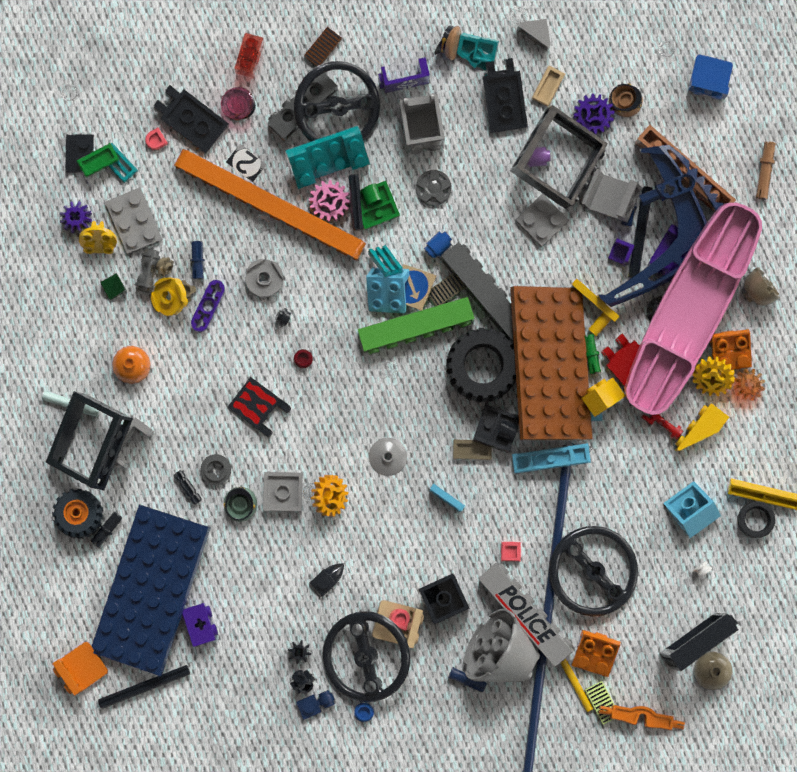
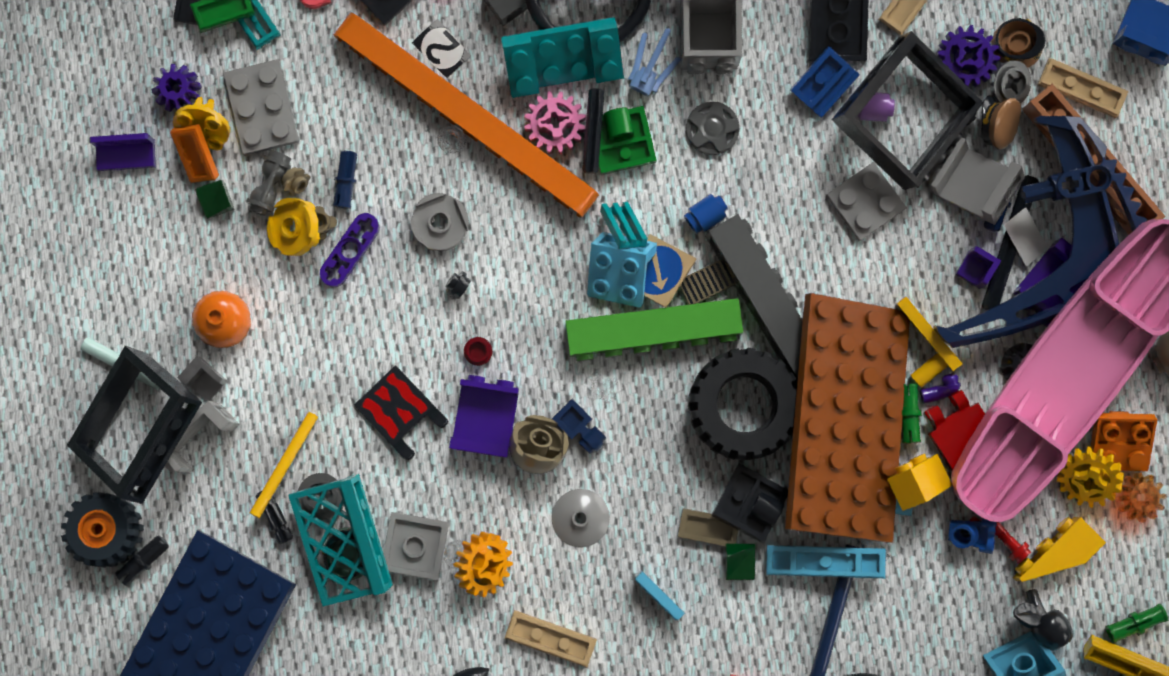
camera: 15 degrees right, 0 degrees up
(48, 265) = (124, 151): none -> dark purple panel
(96, 258) = (194, 153): none -> orange plate
(126, 404) = (202, 378): none -> flat silver panel
(188, 453) = (283, 465): none -> yellow bar
(250, 490) = (365, 540): none -> teal fence
(314, 400) = (485, 416): none -> dark purple panel
(352, 412) = (537, 444): none -> dark tan cylinder
(373, 393) = (574, 421): none -> dark blue plate
(381, 537) = (550, 638): none -> tan tile
(384, 163) = (644, 80): none -> light blue plant
(495, 467) = (739, 561): none -> dark green slope
(502, 145) = (824, 82): none -> blue plate
(609, 337) = (941, 392): none -> dark purple arm
(620, 154) = (1000, 121): none -> medium nougat piece
(631, 127) = (1021, 81): none -> dark grey gear
(649, 226) = (1025, 236): none -> white sticker
(649, 425) = (981, 534): none -> blue plate
(672, 122) = (1083, 87): none -> tan tile
(701, 478) = (1049, 627): none -> black piece
(747, 473) = (1136, 623): none -> green pin

